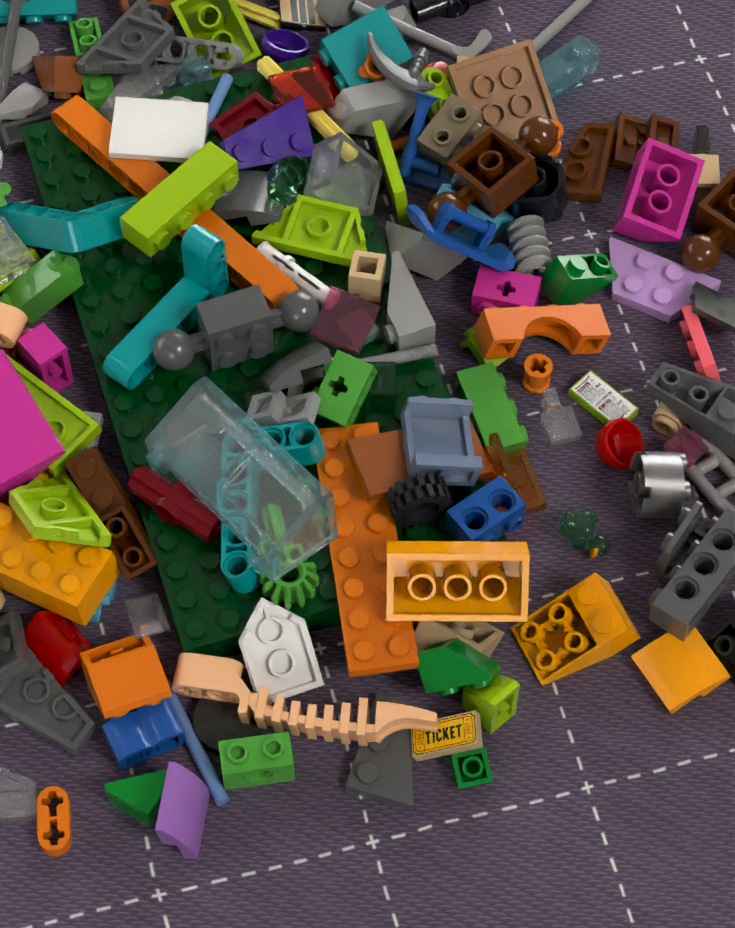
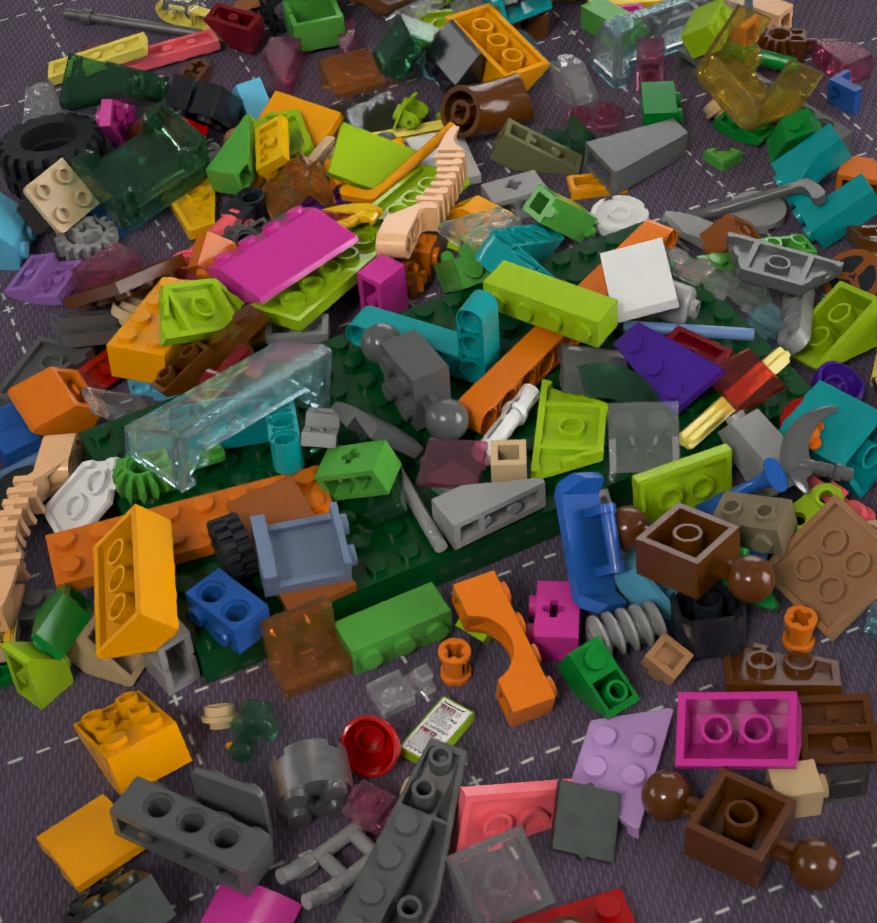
camera: 85 degrees right, 15 degrees down
(561, 557) = (219, 715): none -> tan plate
(567, 227) = (666, 659): none -> medium nougat tile

